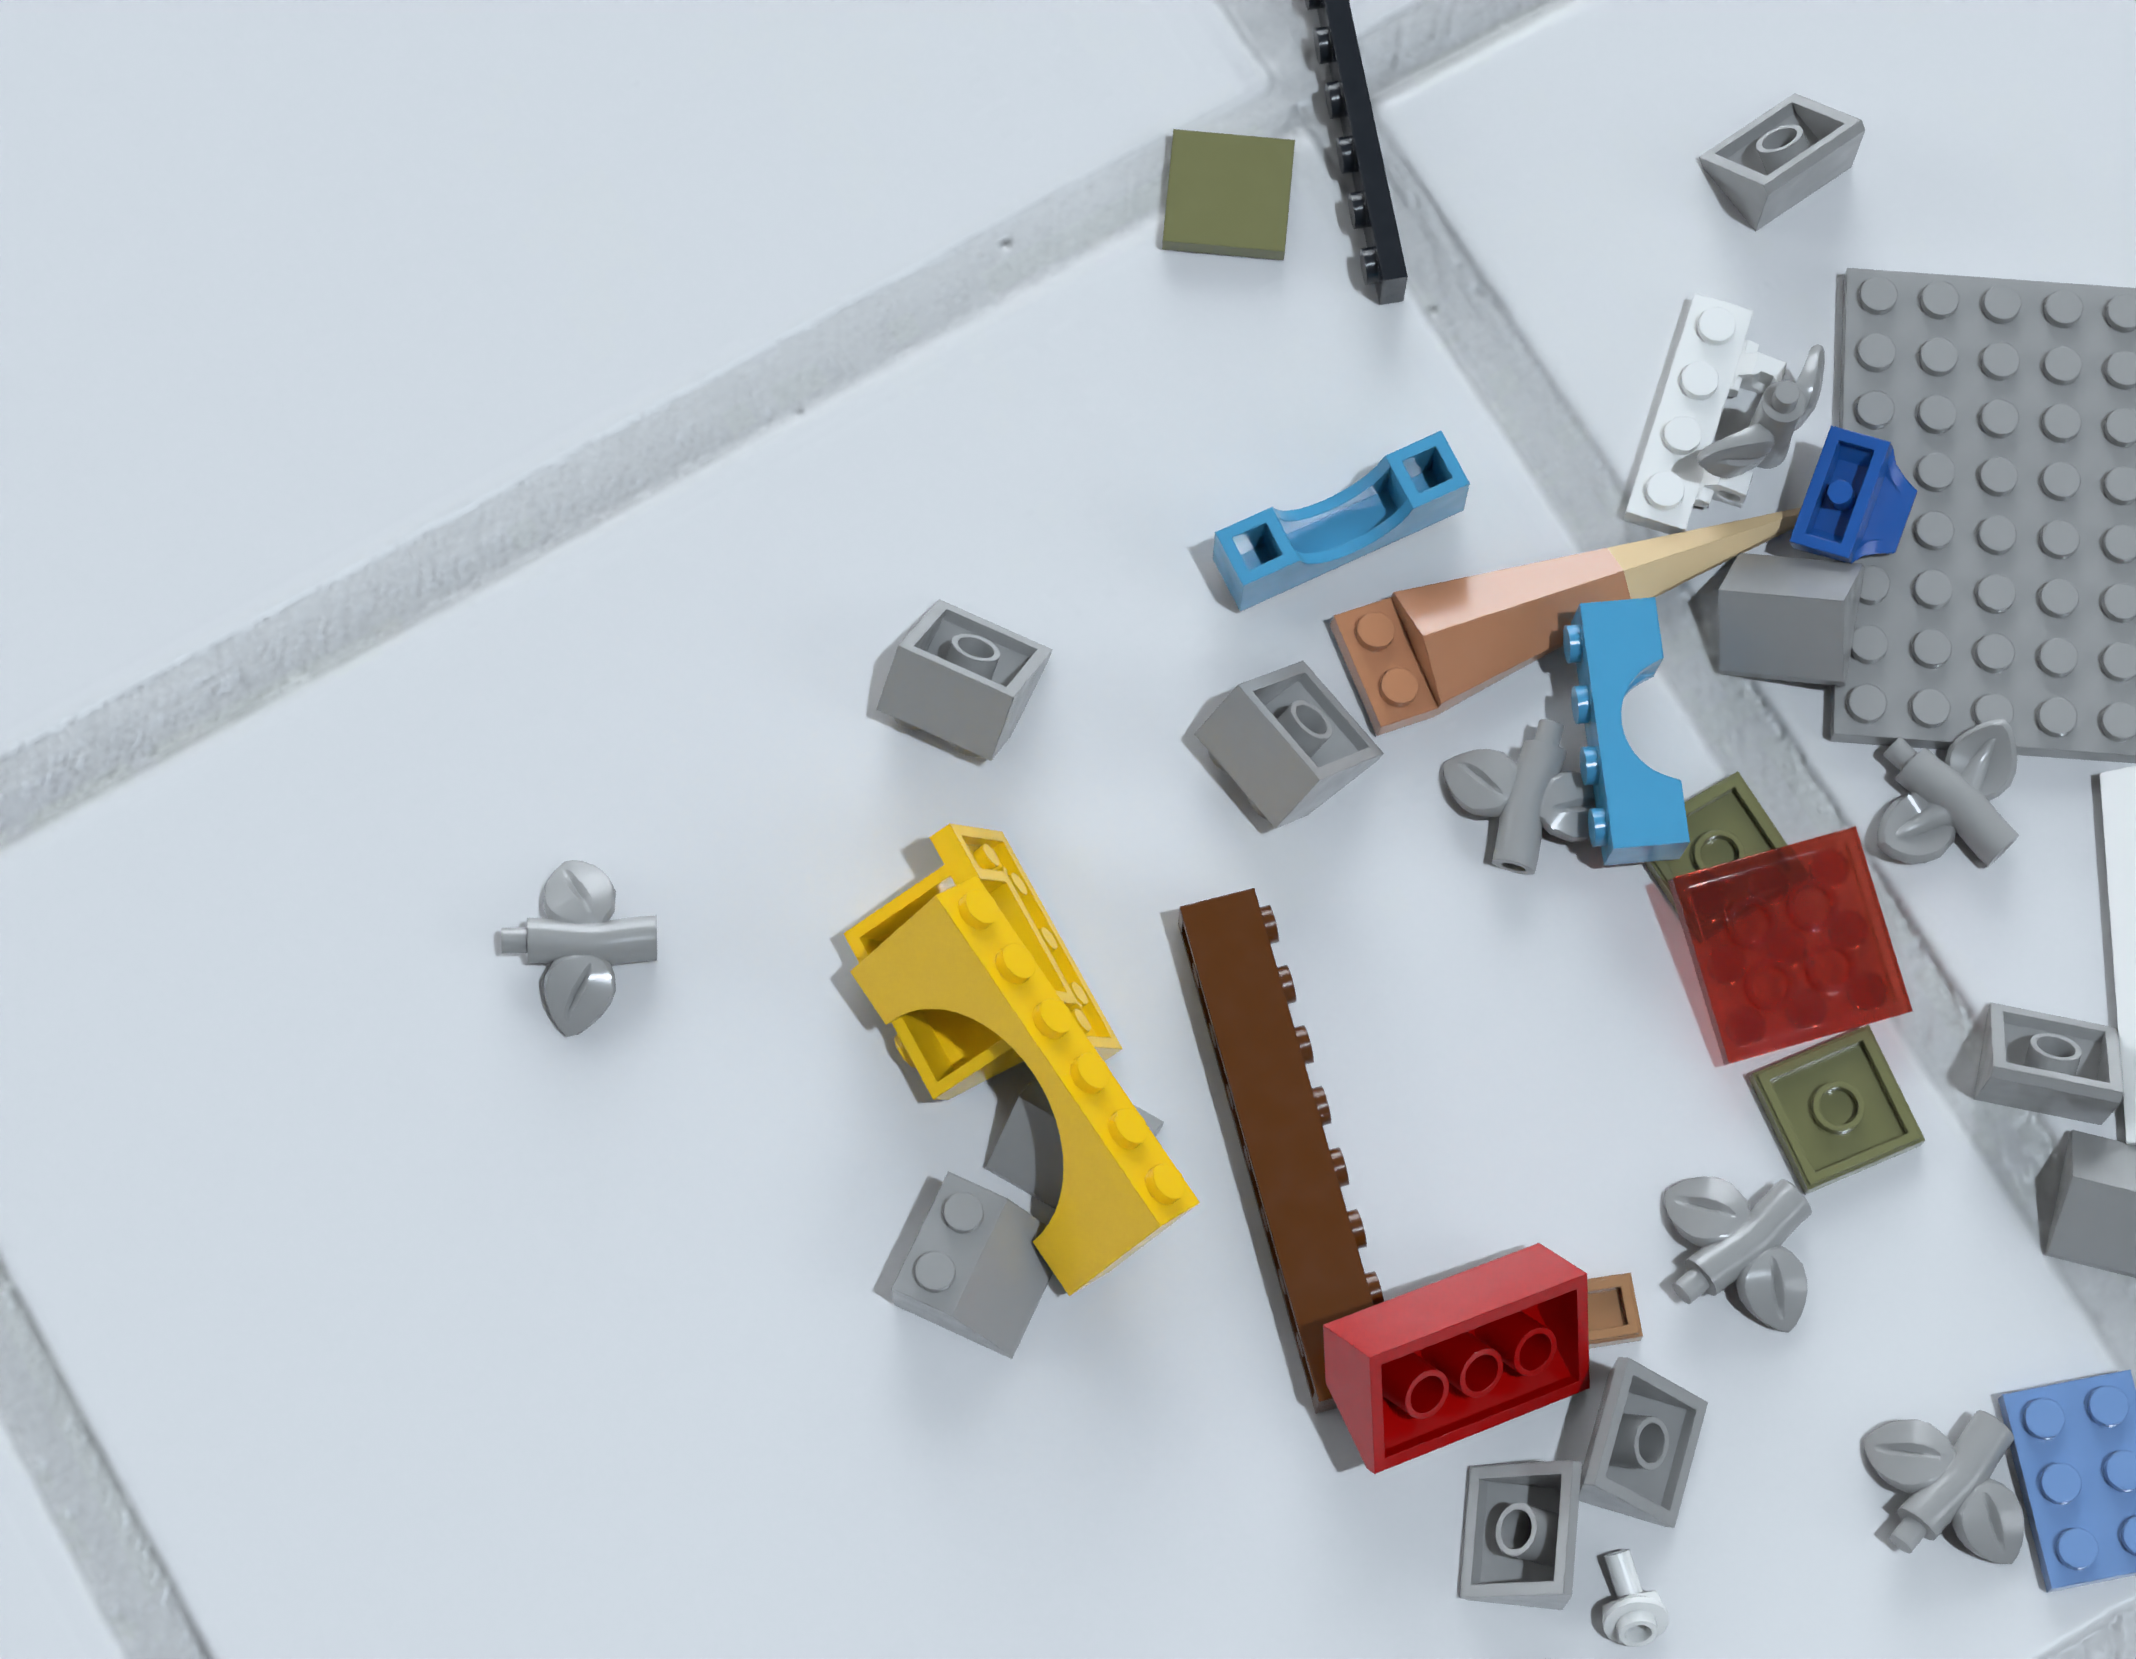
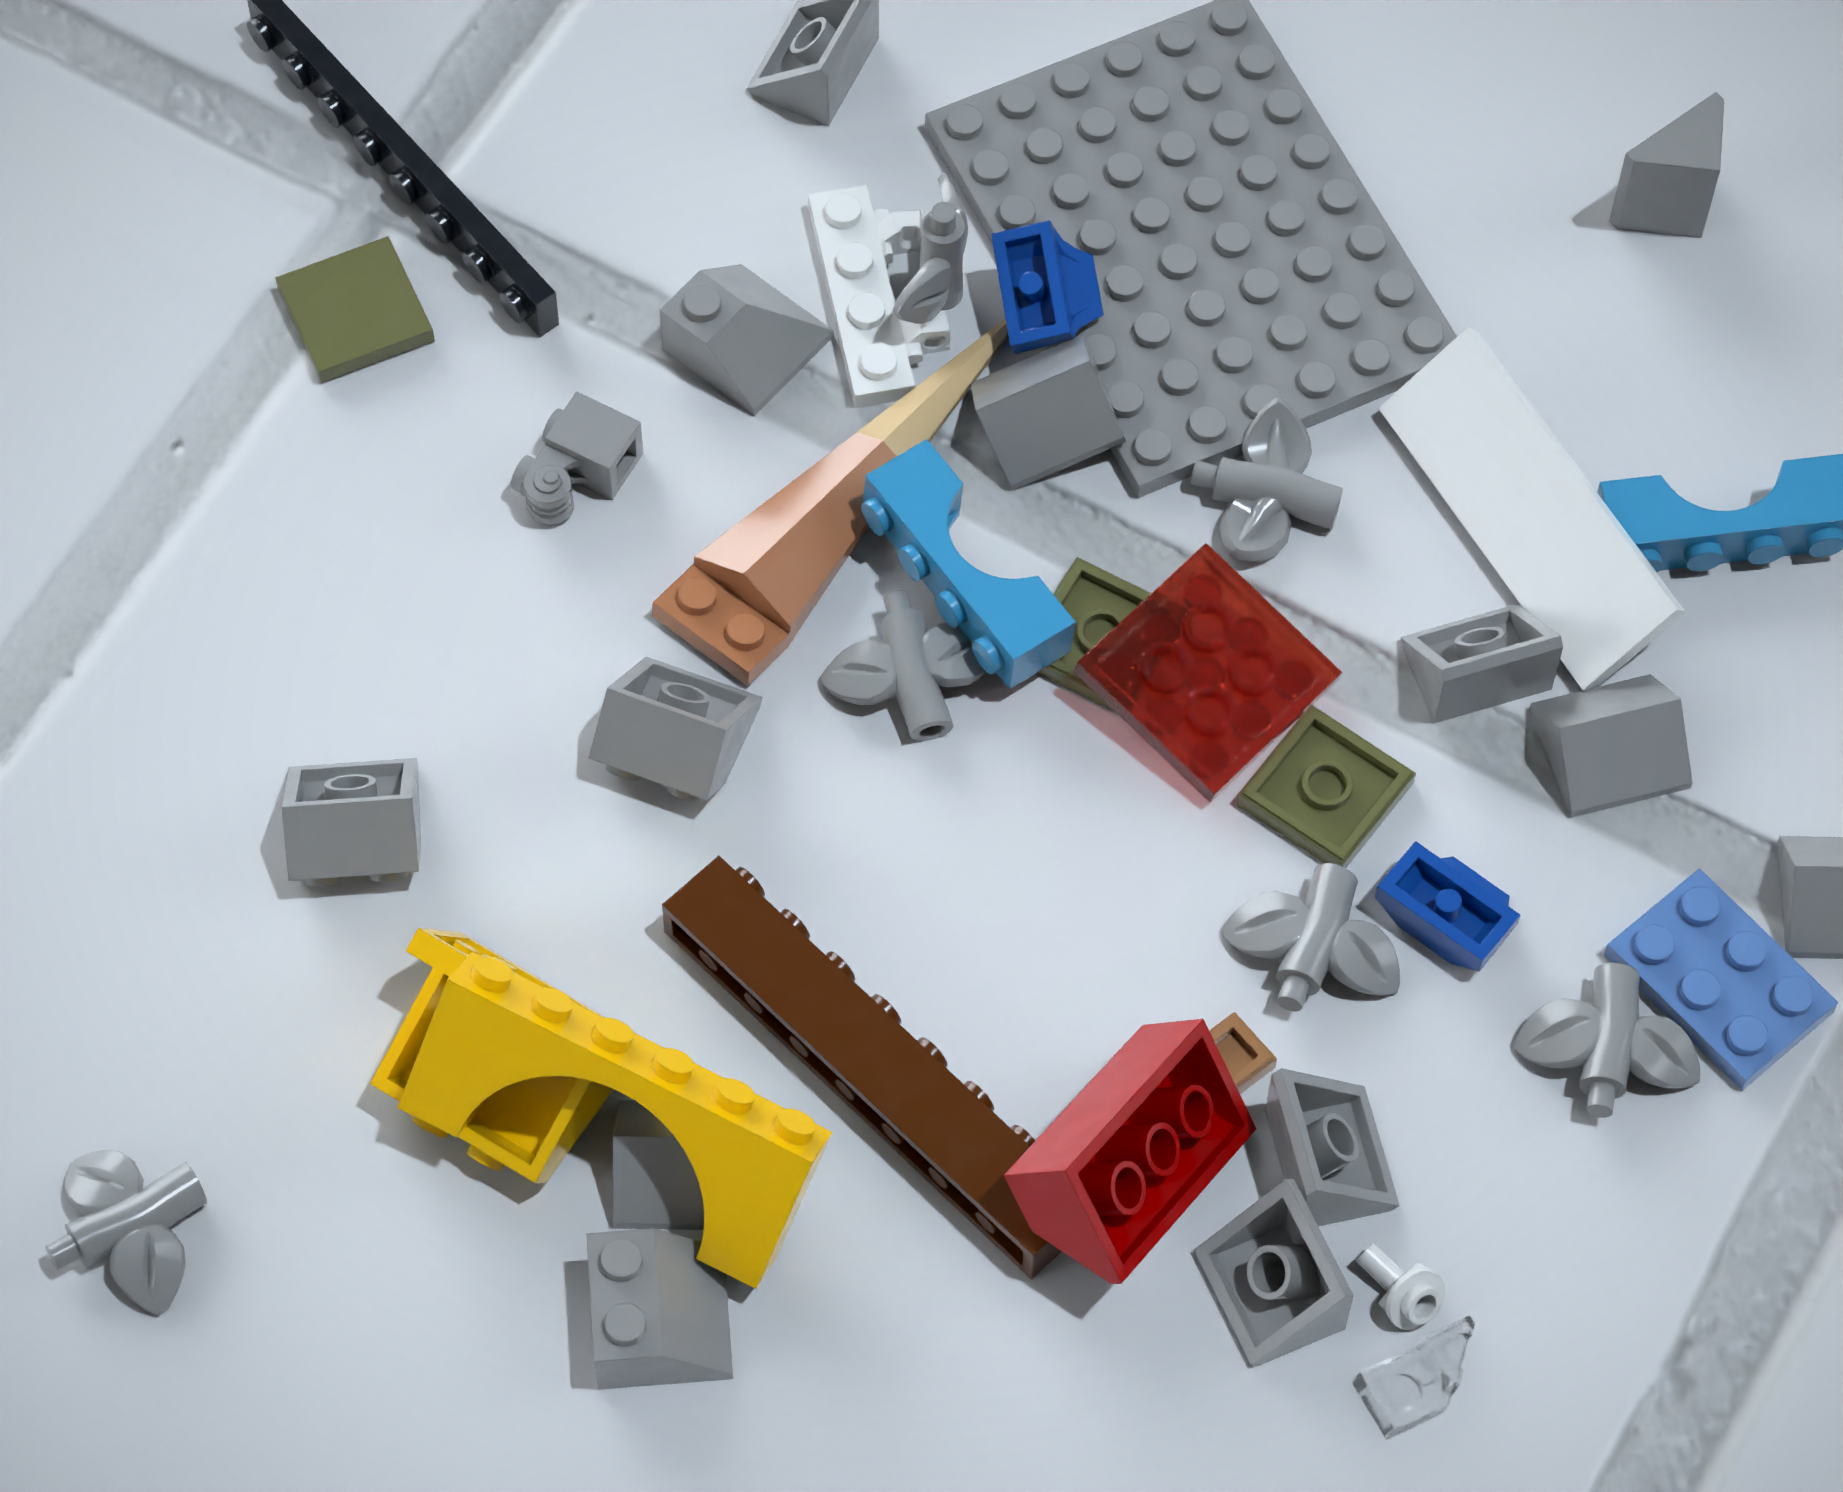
camera: 30 degrees left, 10 degrees down
(1294, 546) = (577, 568): dark azure arch -> none
(1350, 433) = (582, 446): none -> light grey brick
(1559, 397) = (740, 334): none -> light grey slope
(1881, 1280) = (1447, 907): none -> blue slope

